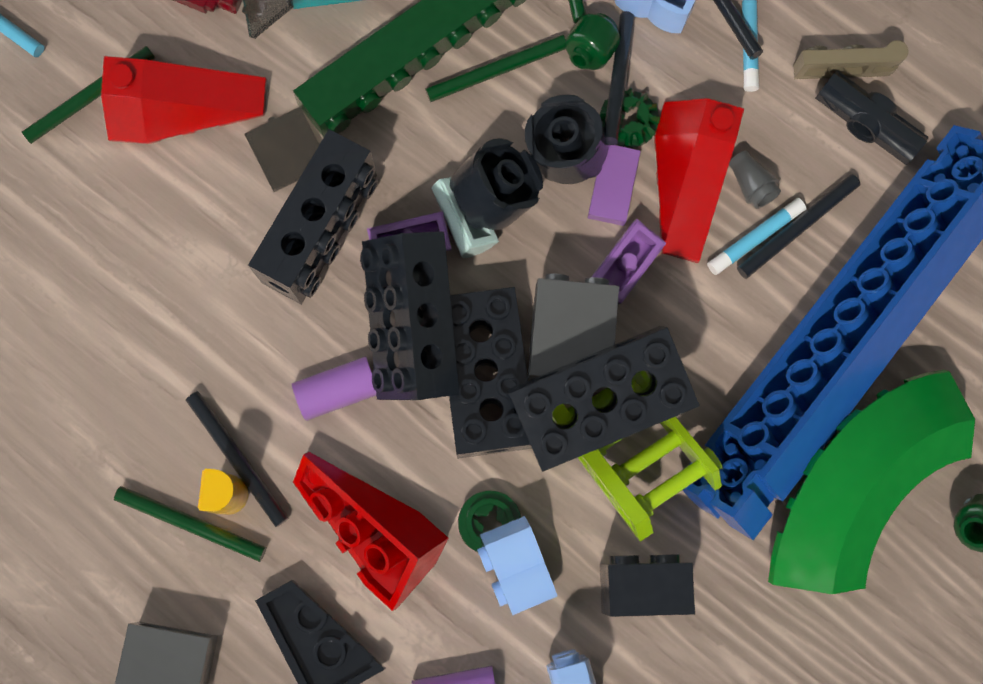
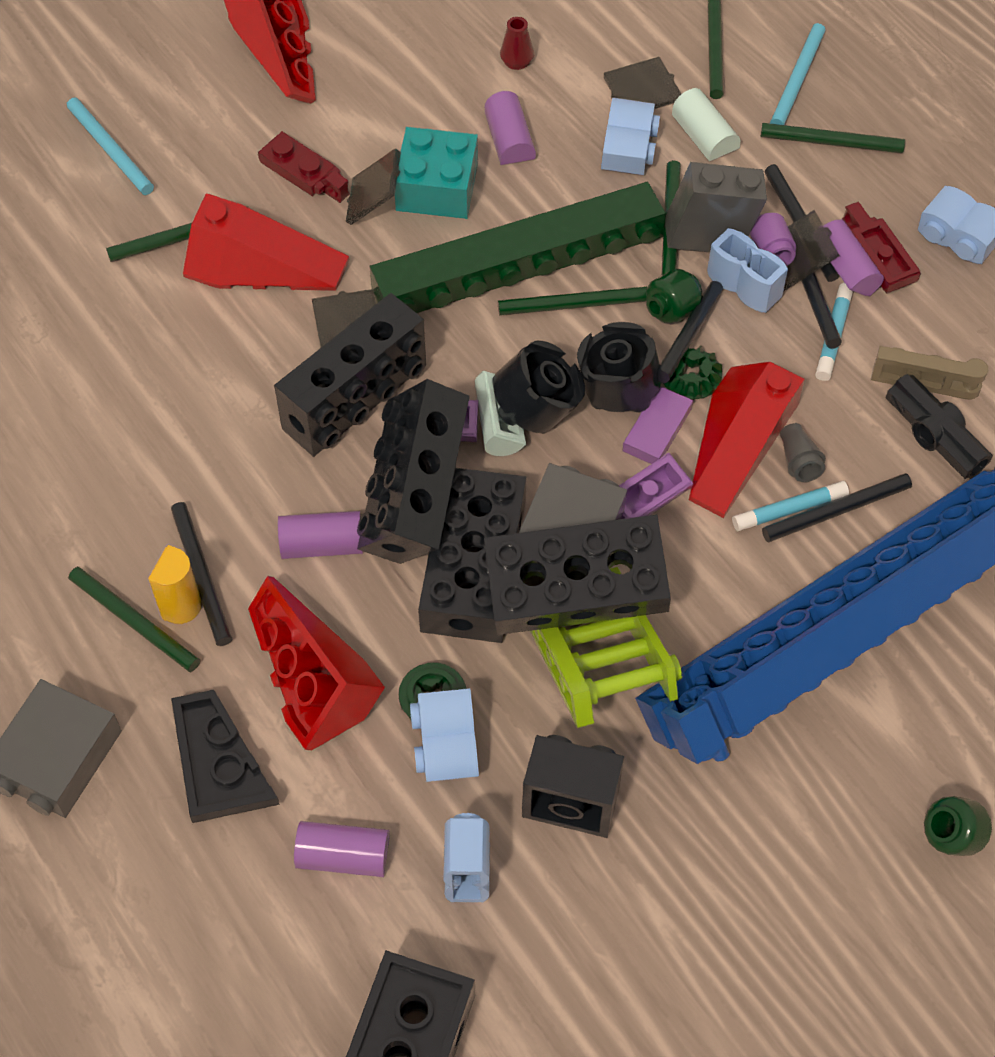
camera: 20 degrees right, 20 degrees down
(864, 479) = (831, 735): green brick -> none

